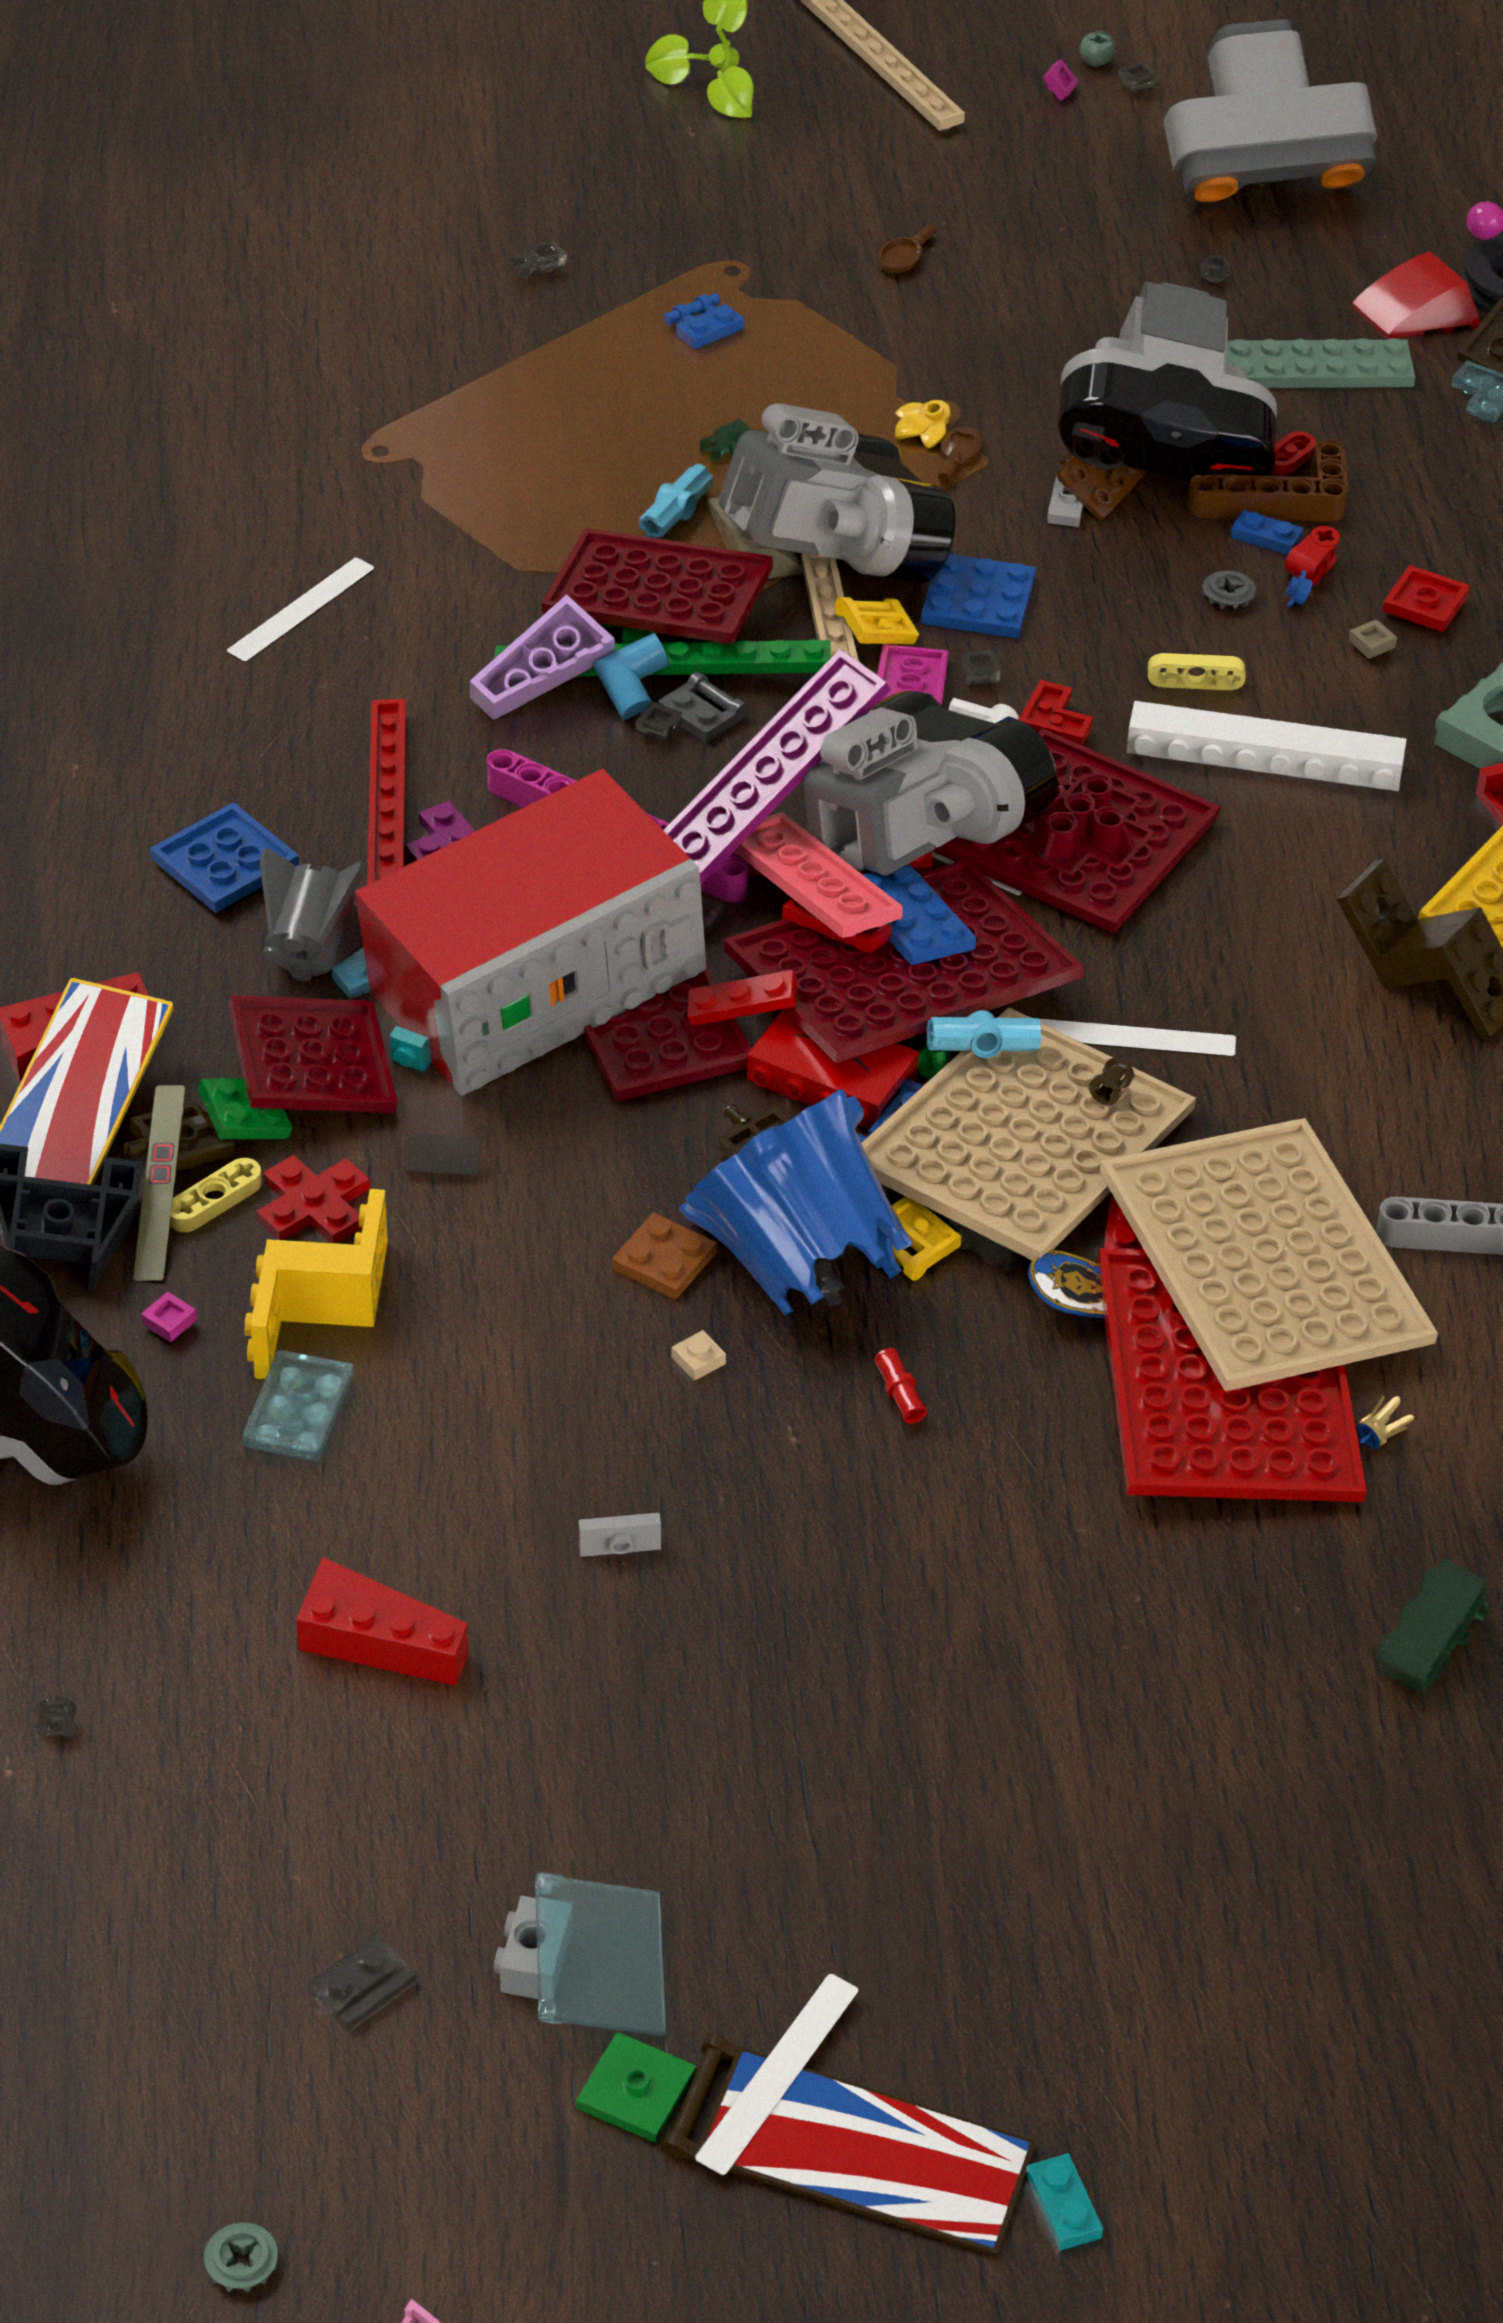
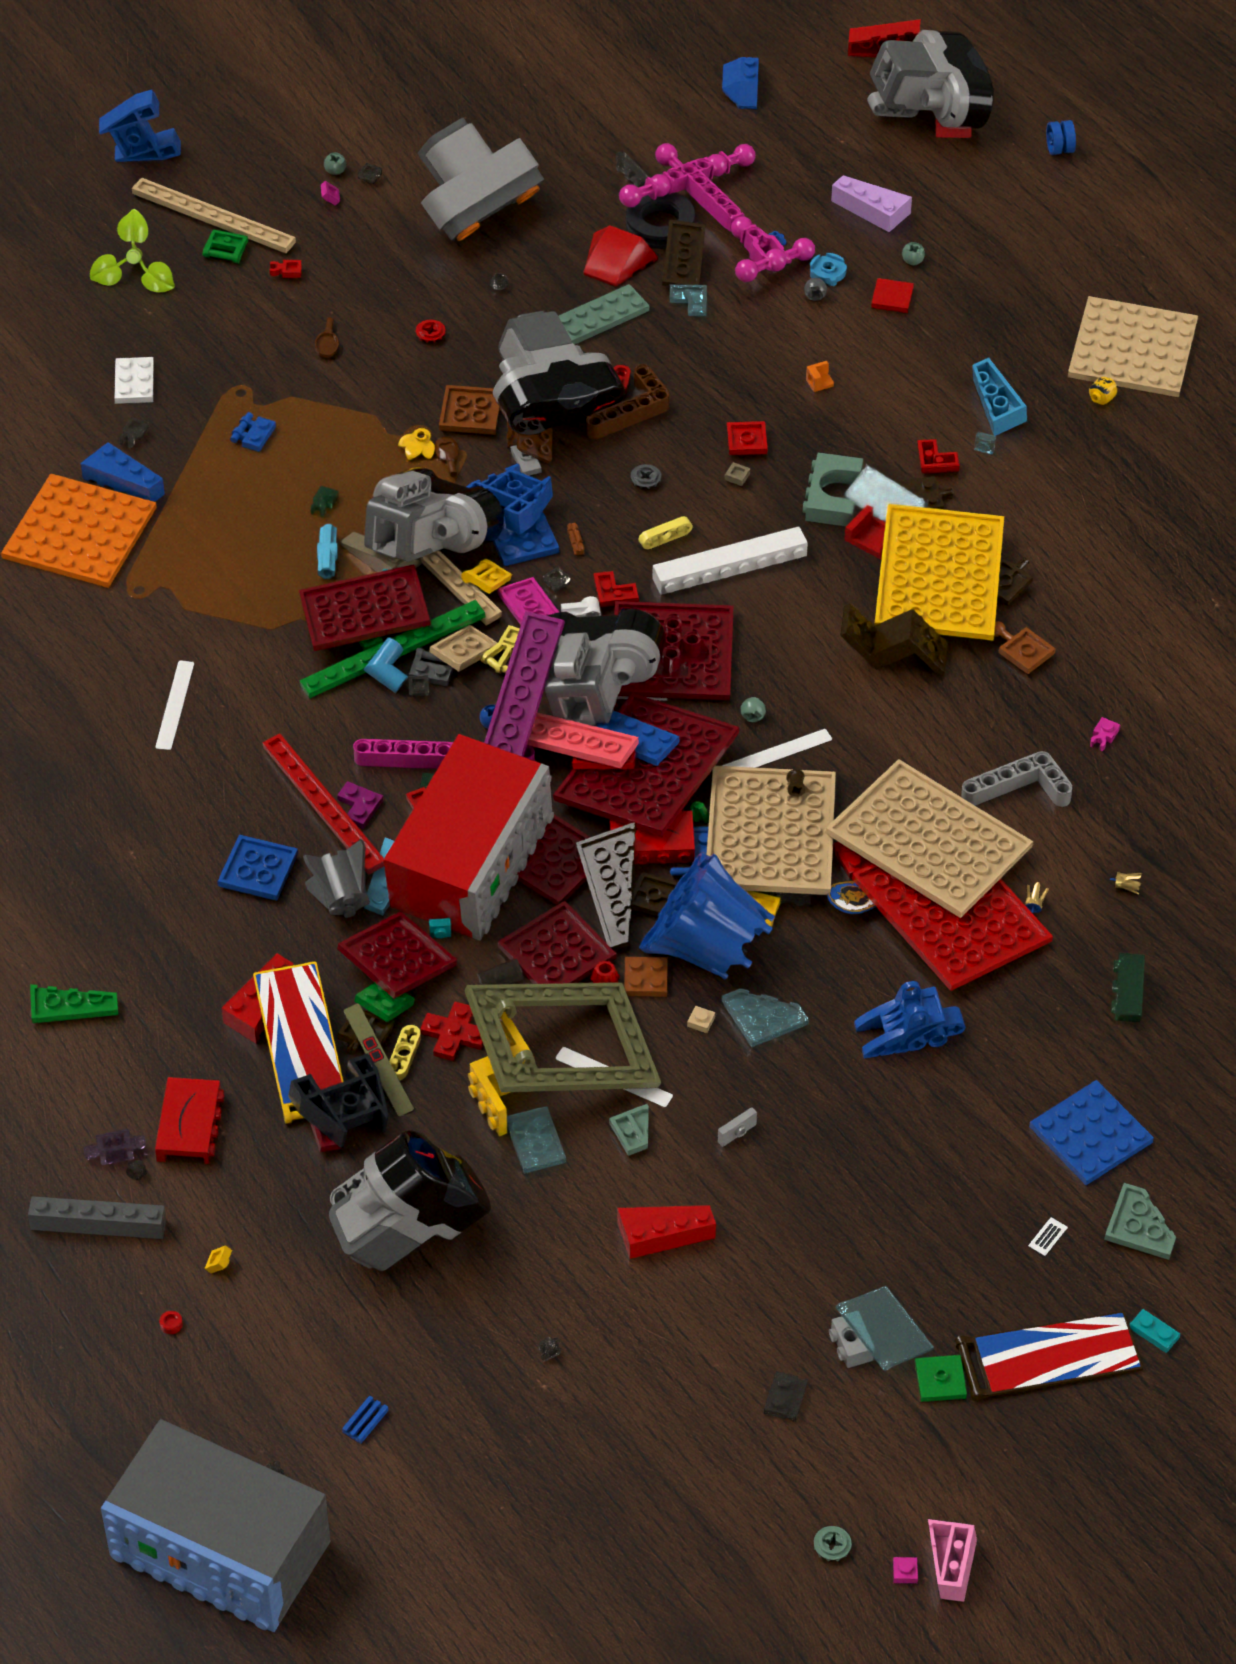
camera: 30 degrees left, 5 degrees up
(169, 1316) = (436, 1126): dark pink plate -> none
(306, 1283) = (490, 1002): none -> olive plate
(363, 348) = (79, 530): none -> orange plate
(458, 1460) = (632, 1129): none -> sand green wing
(476, 299) = (124, 474): none -> blue wedge
(499, 1377) = (578, 1060): none -> white sticker
(541, 658) = (341, 673): lavender wedge -> none
(558, 1157) = (556, 947): none -> dark red plate
(597, 201) = (134, 380): none -> white plate
(600, 1223) = (605, 973): none -> red piece
(715, 1083) = (610, 875): none -> wing
(742, 997) = (589, 822): red plate -> none
(753, 696) = (462, 647): none -> tan tile
(776, 2074) = (997, 1339): white sticker -> none
(796, 1394) = (763, 1016): none -> clear light blue plate
(864, 85) = (225, 241): none -> green plate
(900, 1385) = (807, 988): red pin -> none
(923, 148) = (288, 268): none -> red plate
(998, 1036) = (719, 786): medium azure piece -> none
(1000, 1954) = (1048, 1236): none -> white sticker
(1004, 536) = (520, 494): none -> blue wedge
(1018, 1498) = (910, 1022): none -> blue piece
(1024, 408) = (469, 410): none -> dark orange plate
(1055, 628) = (575, 539): none -> dark orange axle
(1063, 292) = (426, 326): none -> red gear
(1135, 958) = (753, 709): none -> sand green piece
(1169, 2012) = (1139, 1224): none -> sand green plate
(1202, 1826) = (1091, 1132): none -> blue plate
(1266, 532) = (639, 433): blue plate -> none
(1298, 589) = (681, 461): blue plate -> none
(1314, 554) = (676, 437): red piece -> none

